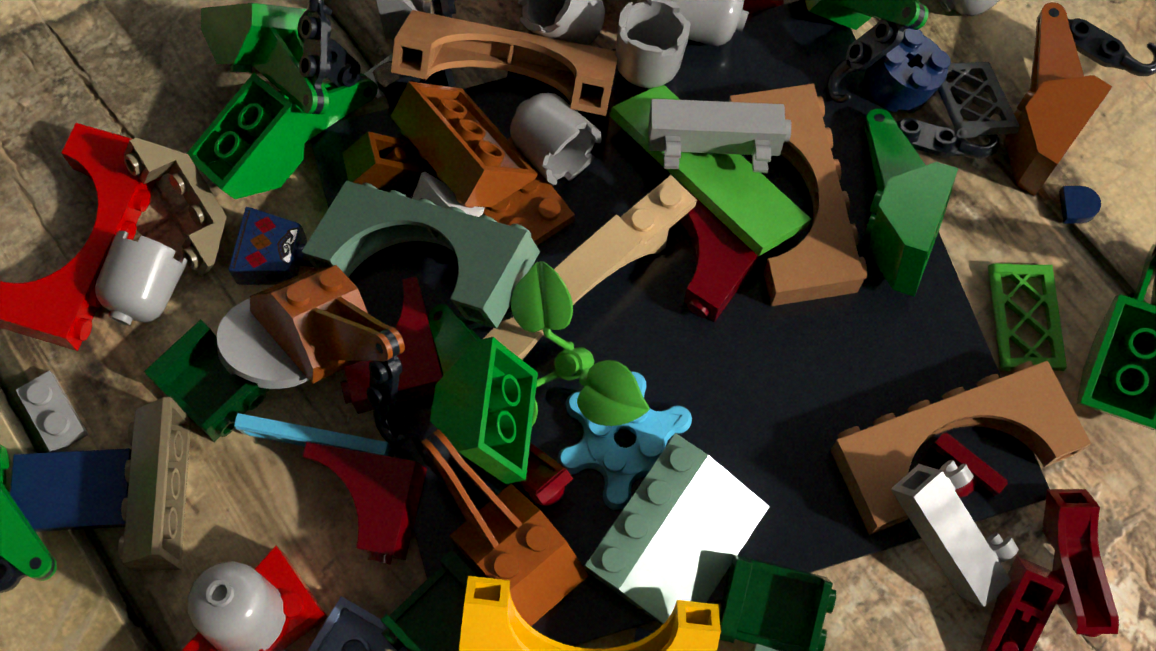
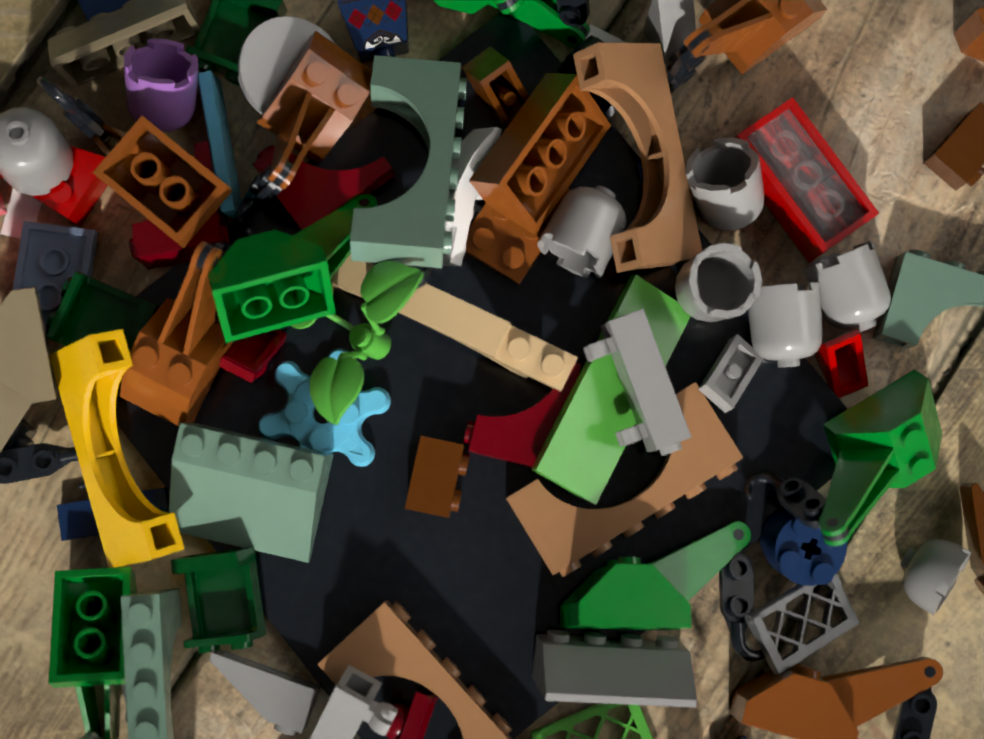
camera: 70 degrees right, 15 degrees up
(229, 463) = (161, 83): none -> medium lavender cylinder
(317, 491) = (149, 170): none -> dark orange slope
(729, 353) = (436, 477): none -> reddish brown brick
(732, 69) = (730, 373): none -> light grey plate
(892, 590) = (273, 693): none -> light grey slope
(969, 262) = (614, 669): none -> light grey slope

